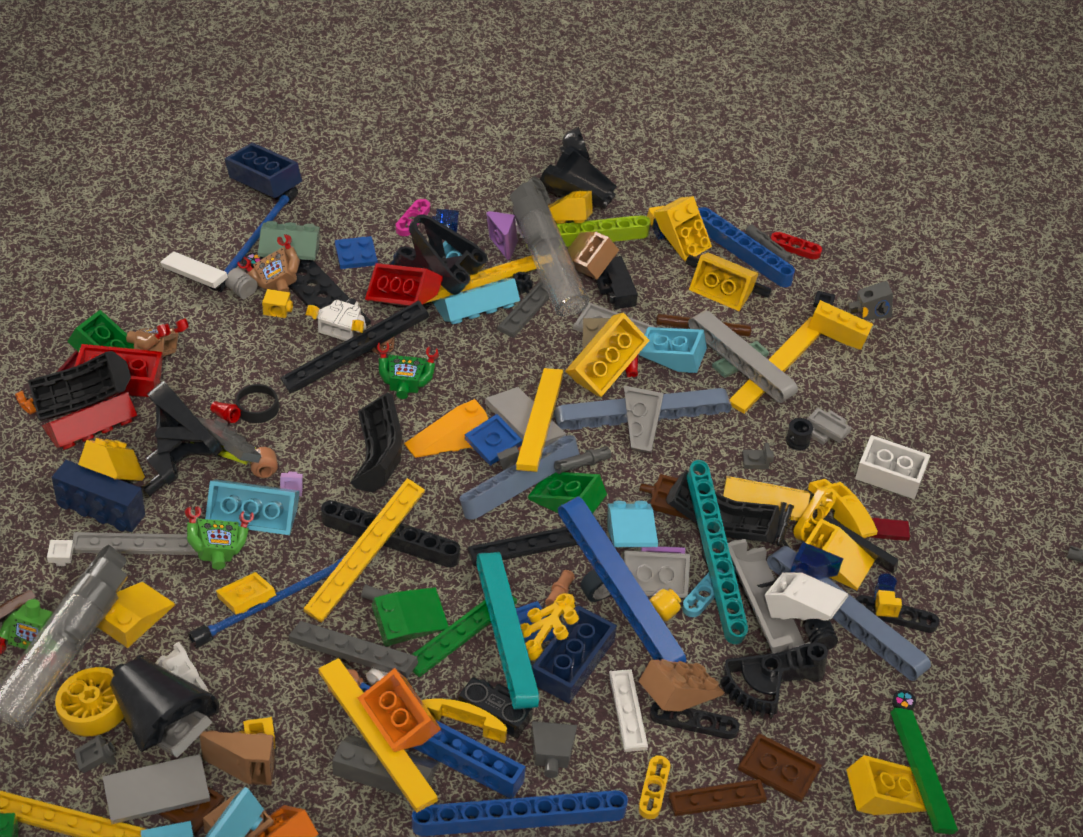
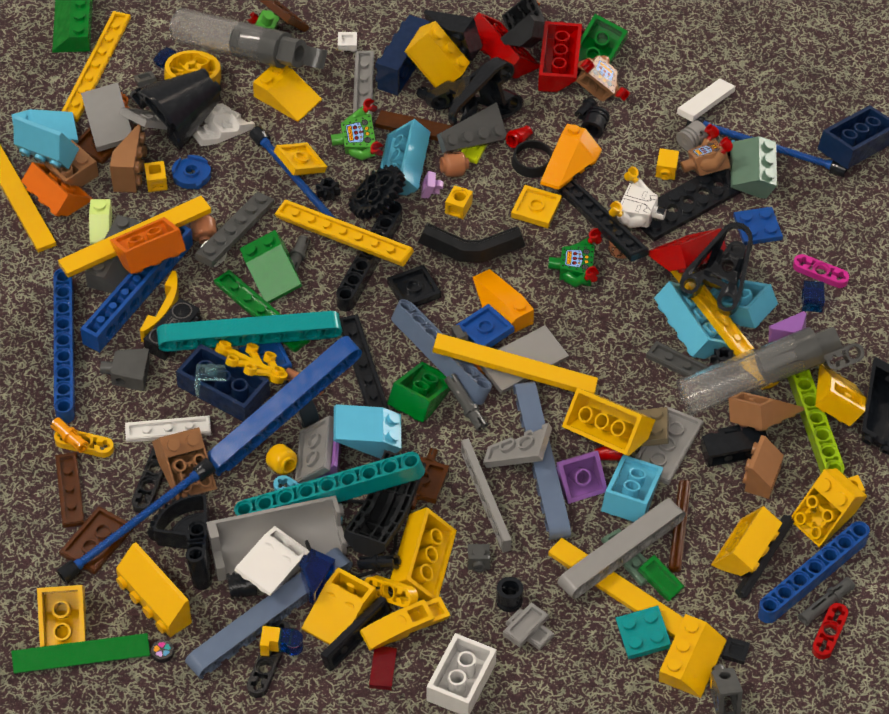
camera: 95 degrees right, 5 degrees up
(52, 737) = (162, 56): none -> clear blue piece
(74, 441) = (460, 29): none -> black slope
(188, 359) = (587, 103): none -> black pin
(196, 496) = (392, 121): none -> reddish brown tile
(213, 351) = (596, 121): none -> black piece
(252, 689) = (195, 180): none -> blue plate
(258, 369) = (571, 156): none -> light orange wedge
(291, 570) = (328, 189): none -> black gear
(317, 460) = (458, 202): none -> yellow brick
(320, 503) = (377, 192): none -> black gear
(324, 402) = (536, 206): none -> yellow plate
(329, 788) = (99, 219): none -> yellowish green slope
(436, 501) = (414, 285): none -> black plate
(584, 656) = (208, 372): none -> clear light blue bracket
(646, 266) = (762, 468): none -> medium nougat slope
(655, 793) = (69, 435): none -> light orange pin
(659, 378) = (581, 477): none -> medium lavender slope
(689, 449) = (486, 495): none -> light grey tile
(763, 338) = (660, 578): none -> green tile
(819, 352) = (643, 632): none -> teal plate
(825, 782) = (72, 568): none -> blue hose
(846, 702) = (153, 591): none -> yellow slope

